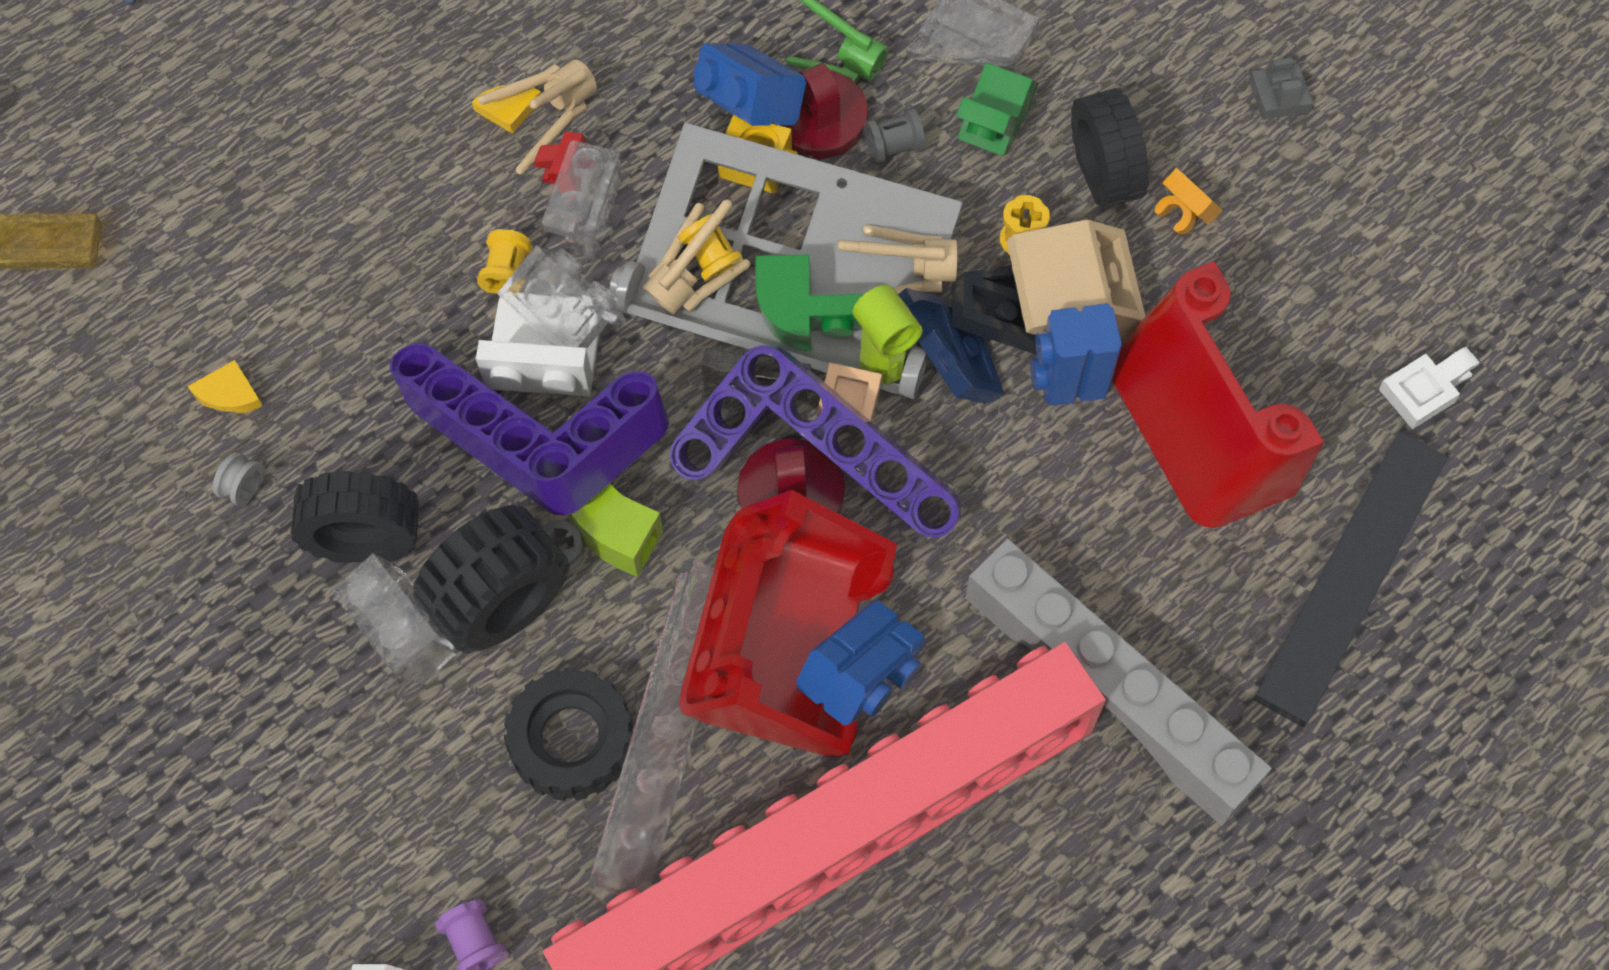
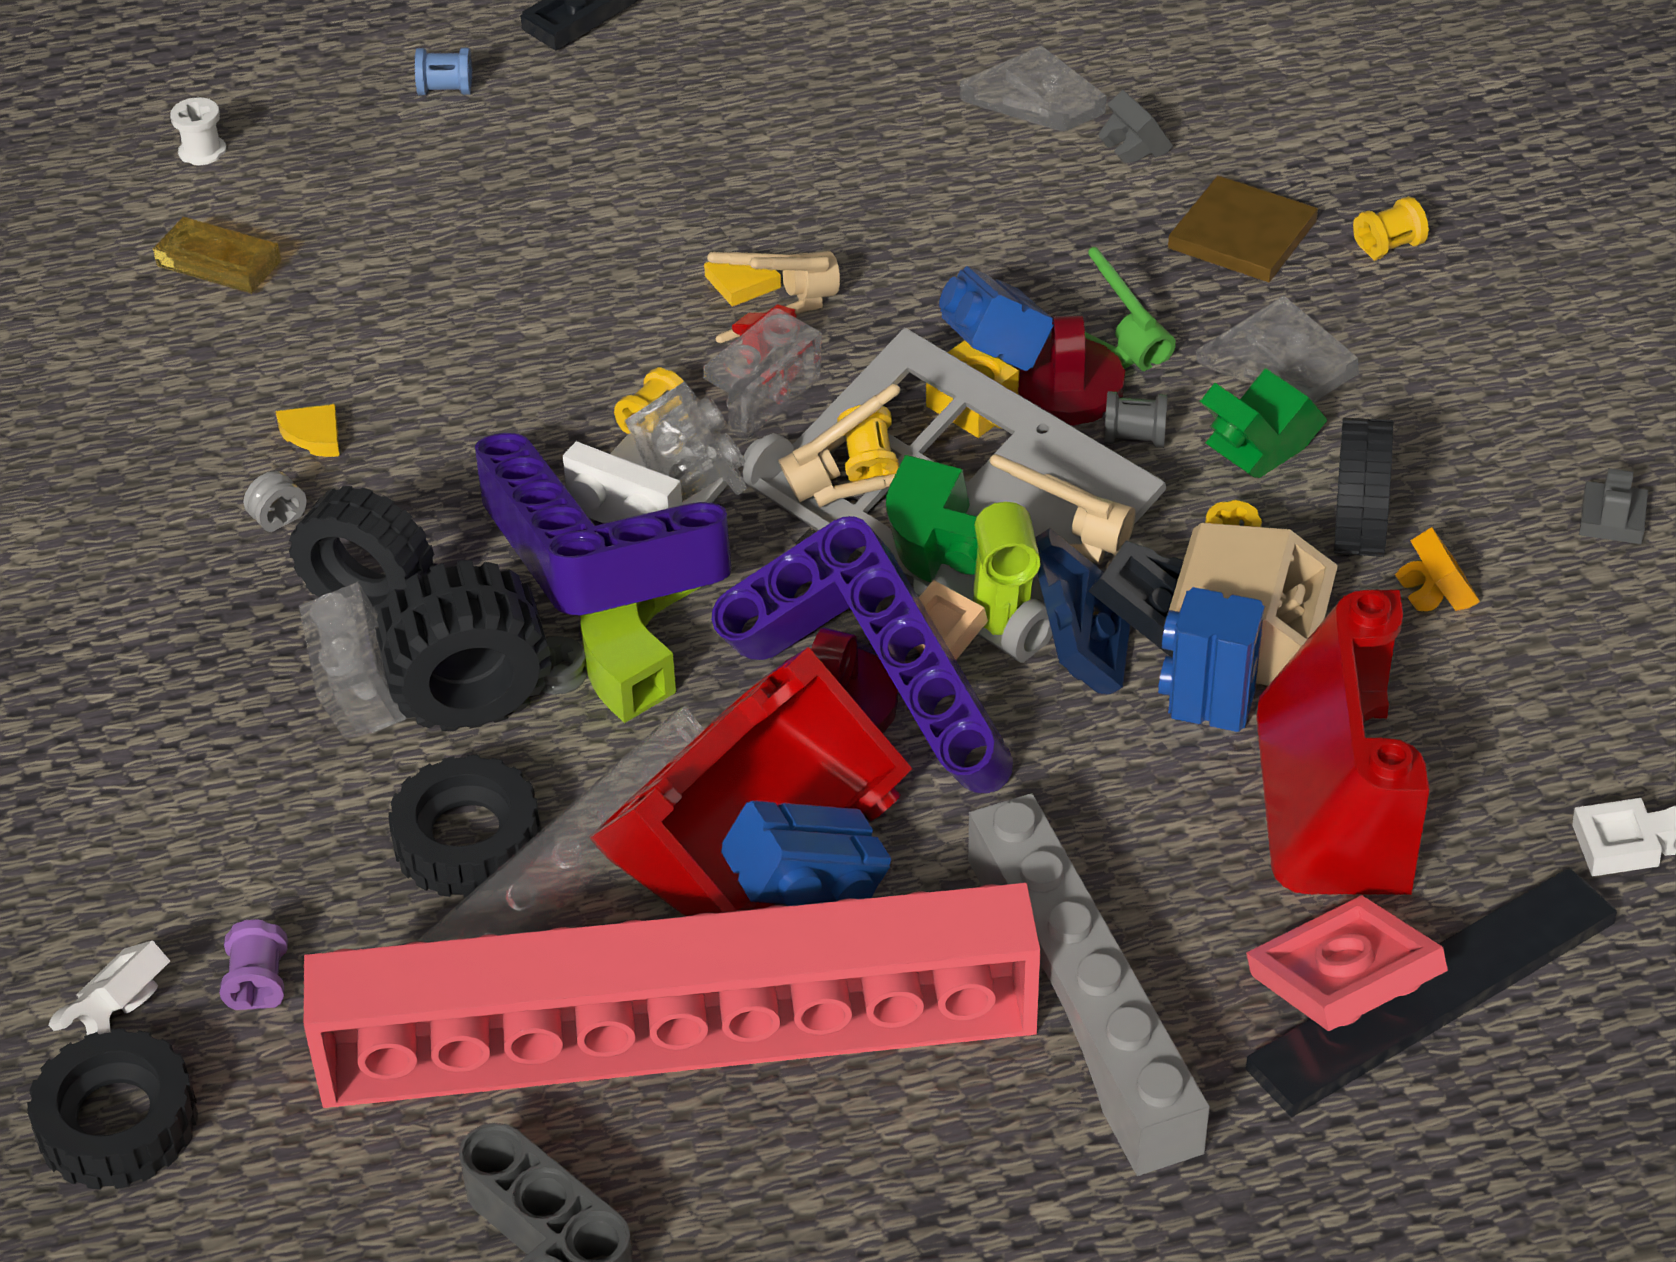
camera: 25 degrees right, 20 degrees down
(1293, 587) = (1346, 962): none -> coral plate

